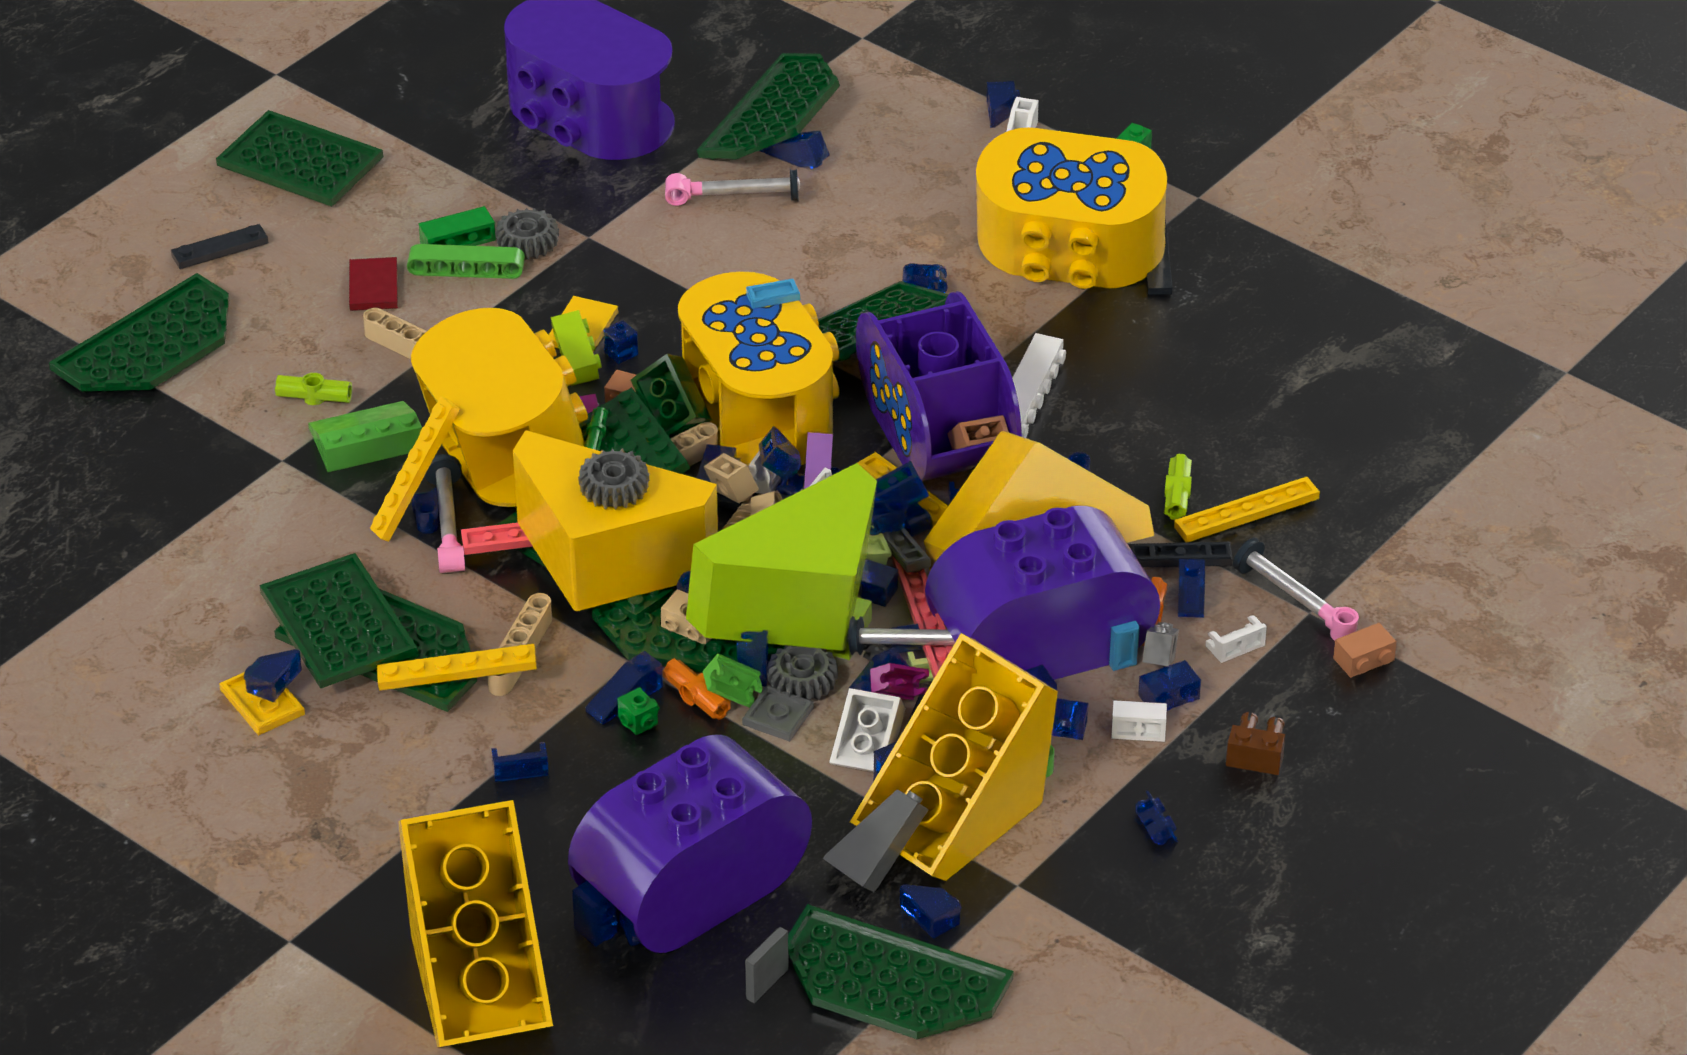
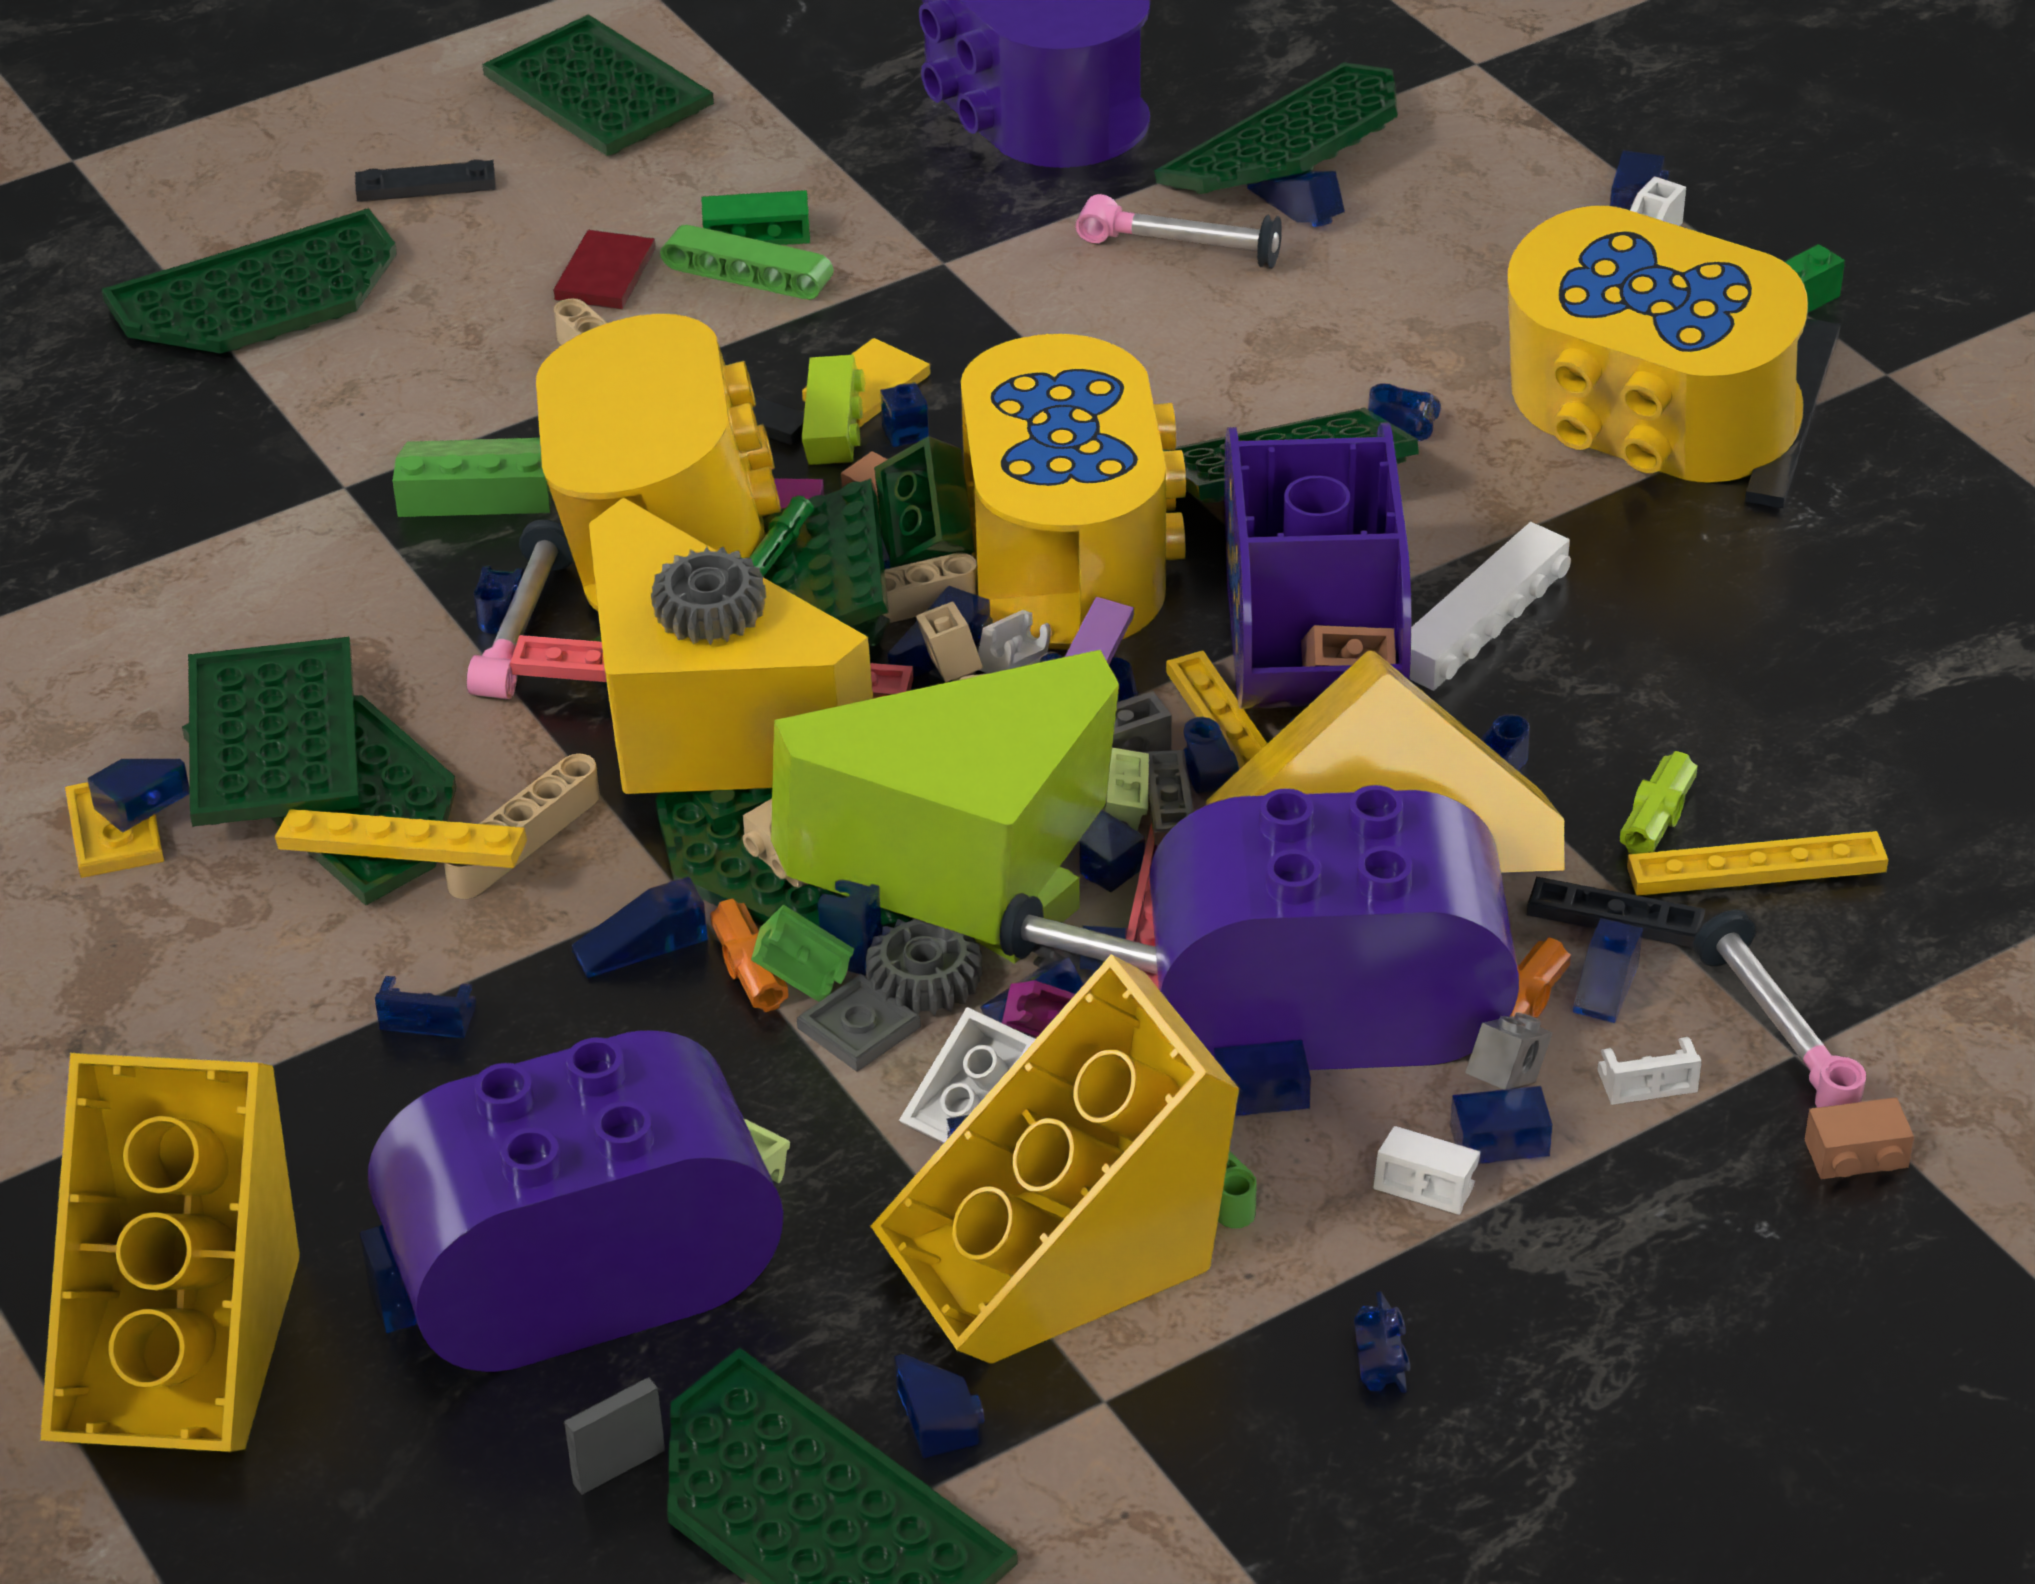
camera: 20 degrees right, 0 degrees up
(313, 388) = (437, 395): lime piece -> none
(414, 468) = (485, 522): yellow plate -> none
(528, 230) = (854, 238): dark grey gear -> none
(638, 711) = (638, 969): green brick -> none
(773, 293) = (1114, 375): dark azure tile -> none
(779, 454) = (1040, 623): clear blue slope -> none
(878, 840) = (890, 1269): dark grey slope -> none
(889, 515) = (1161, 748): clear blue piece -> none
(903, 483) = (1197, 709): clear blue slope -> none
(1070, 719) = (1312, 1140): clear blue brick -> none
(1124, 645) = (1449, 1038): dark azure tile -> none
(1256, 748) = (1601, 1264): reddish brown brick -> none

